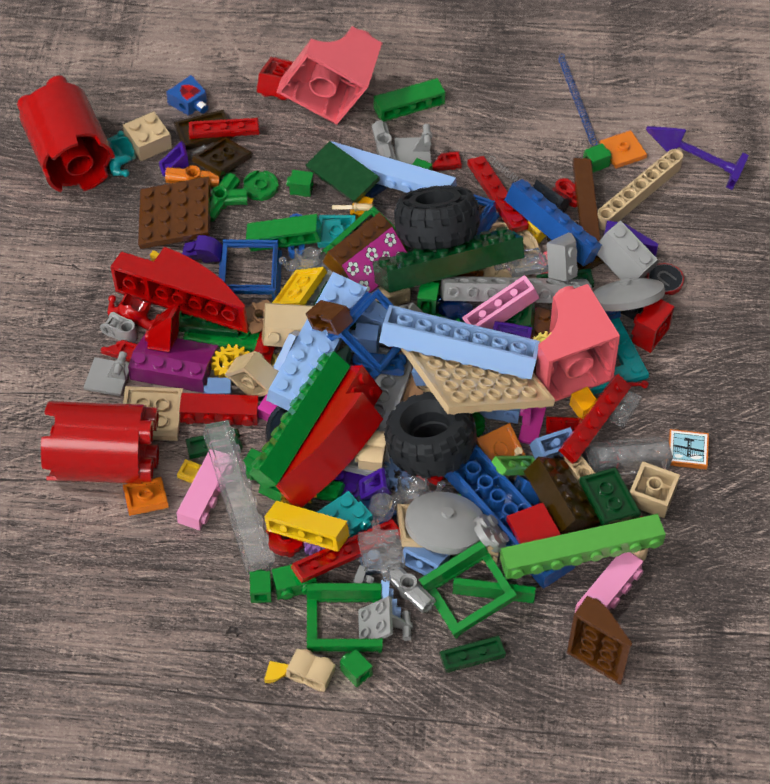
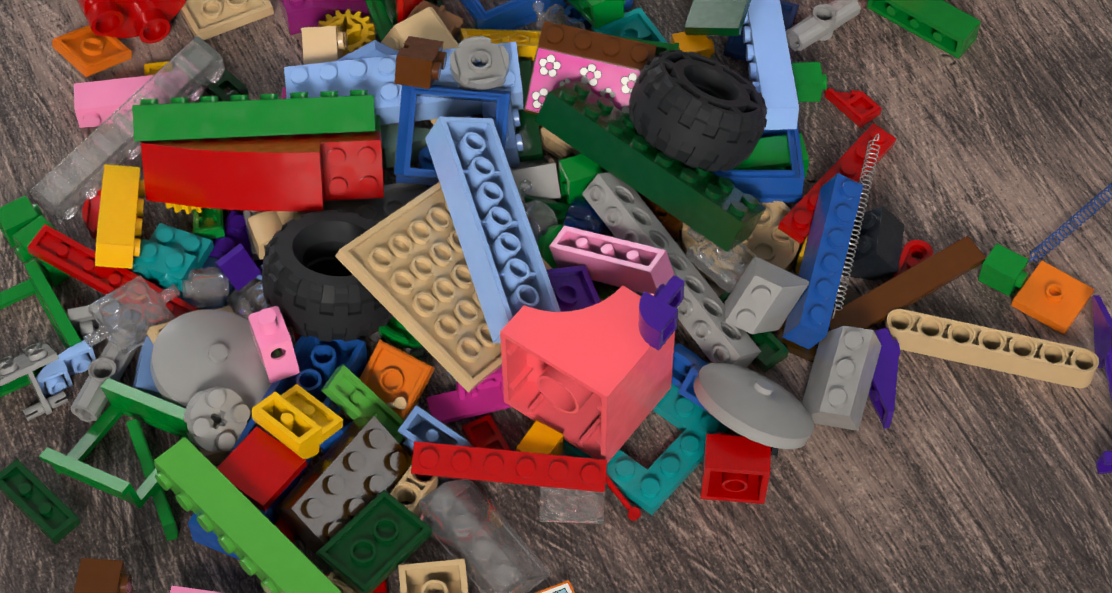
camera: 60 degrees right, 0 degrees up
(218, 386) = (289, 42): medium blue brick -> none
(219, 407) = (259, 48): red brick -> none
(344, 283) = (474, 77): none -> light grey plate
(357, 206) = (677, 34): tan piece -> none
(417, 147) = (842, 58): light grey plate -> none
(459, 482) = (270, 334): none -> bright pink torso
(518, 493) = (297, 420): none -> yellow brick
(587, 289) = (659, 312): none -> dark purple brick
(669, 275) = (848, 456): black tile -> none

